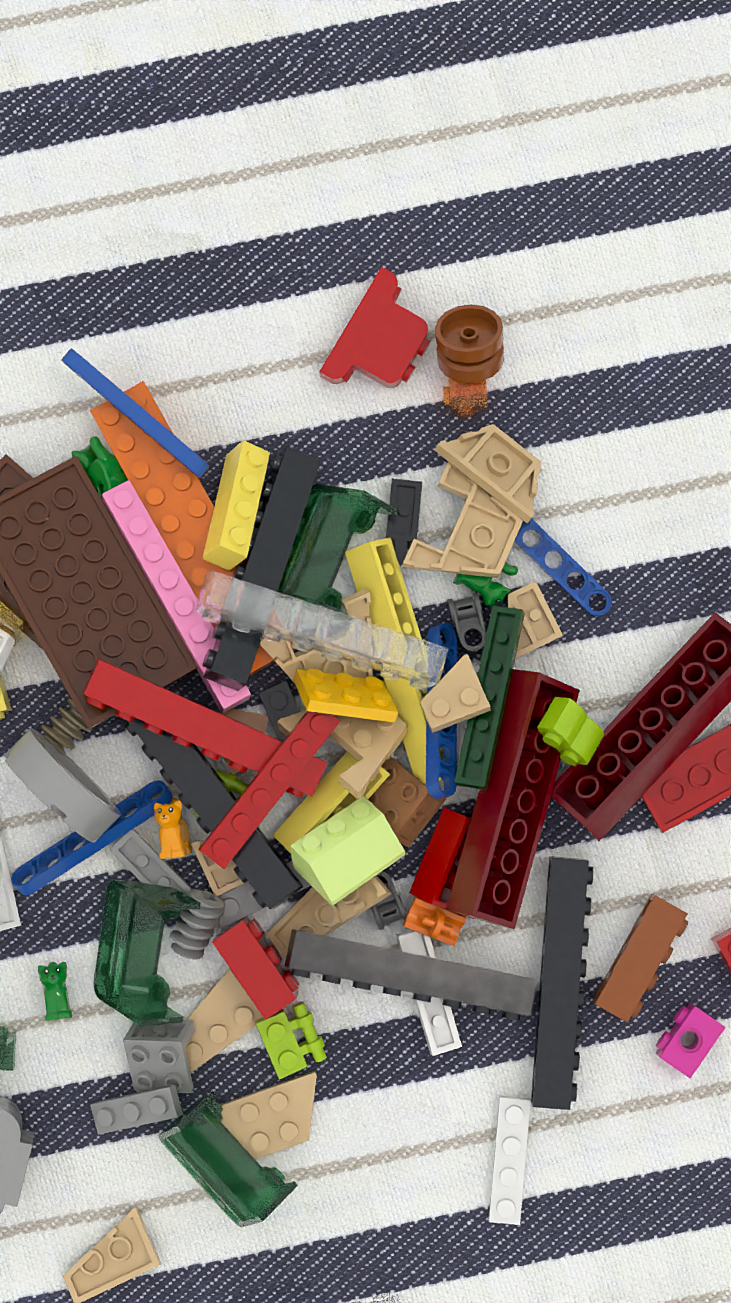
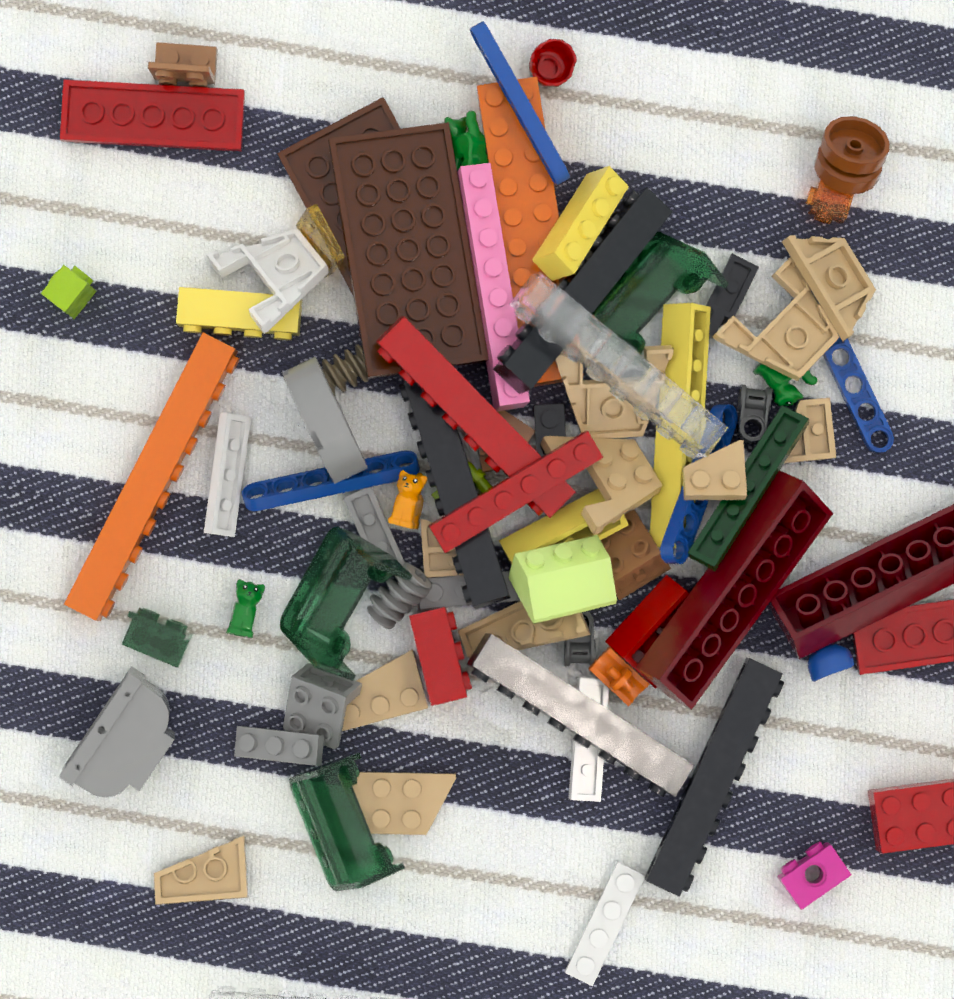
camera: 15 degrees right, 0 degrees up
(154, 361) = (552, 62): none -> red hair
(282, 1045) = (434, 736): lime plate -> none
(345, 695) = (616, 435): yellow plate -> none
(378, 338) = (768, 119): red brick -> none
(570, 731) = (811, 547): lime brick -> none
(628, 832) = (829, 661): none -> blue hair
(640, 958) = (796, 781): dark orange brick -> none

